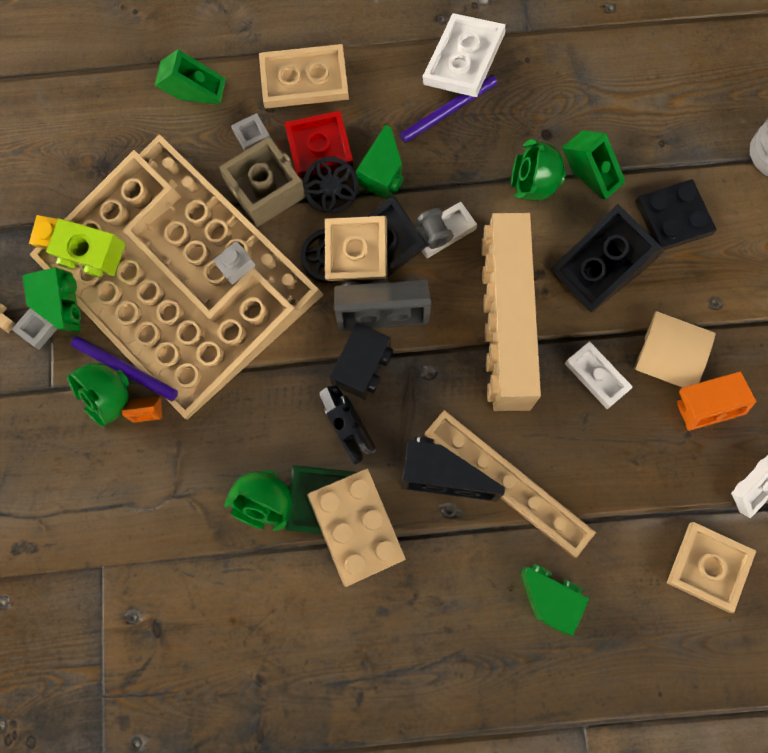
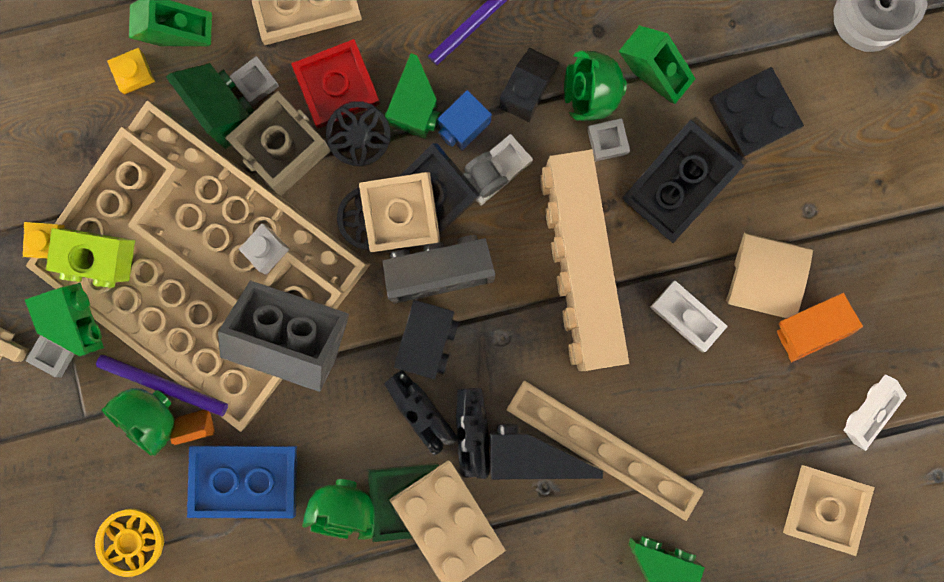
camera: 10 degrees left, 10 degrees up
(66, 501) = (129, 542): none -> yellow wheel
(150, 114) = (131, 71): none -> yellow plate
(178, 461) = (242, 481): none -> blue plate
(211, 138) = (211, 100): none -> dark green slope
(237, 335) = (282, 335): none -> dark grey slope
(390, 449) = (472, 434): none -> black hinge
(422, 186) = (463, 121): none -> blue brick
(480, 167) = (528, 84): none -> black slope
(545, 218) = (608, 139): none -> light grey plate

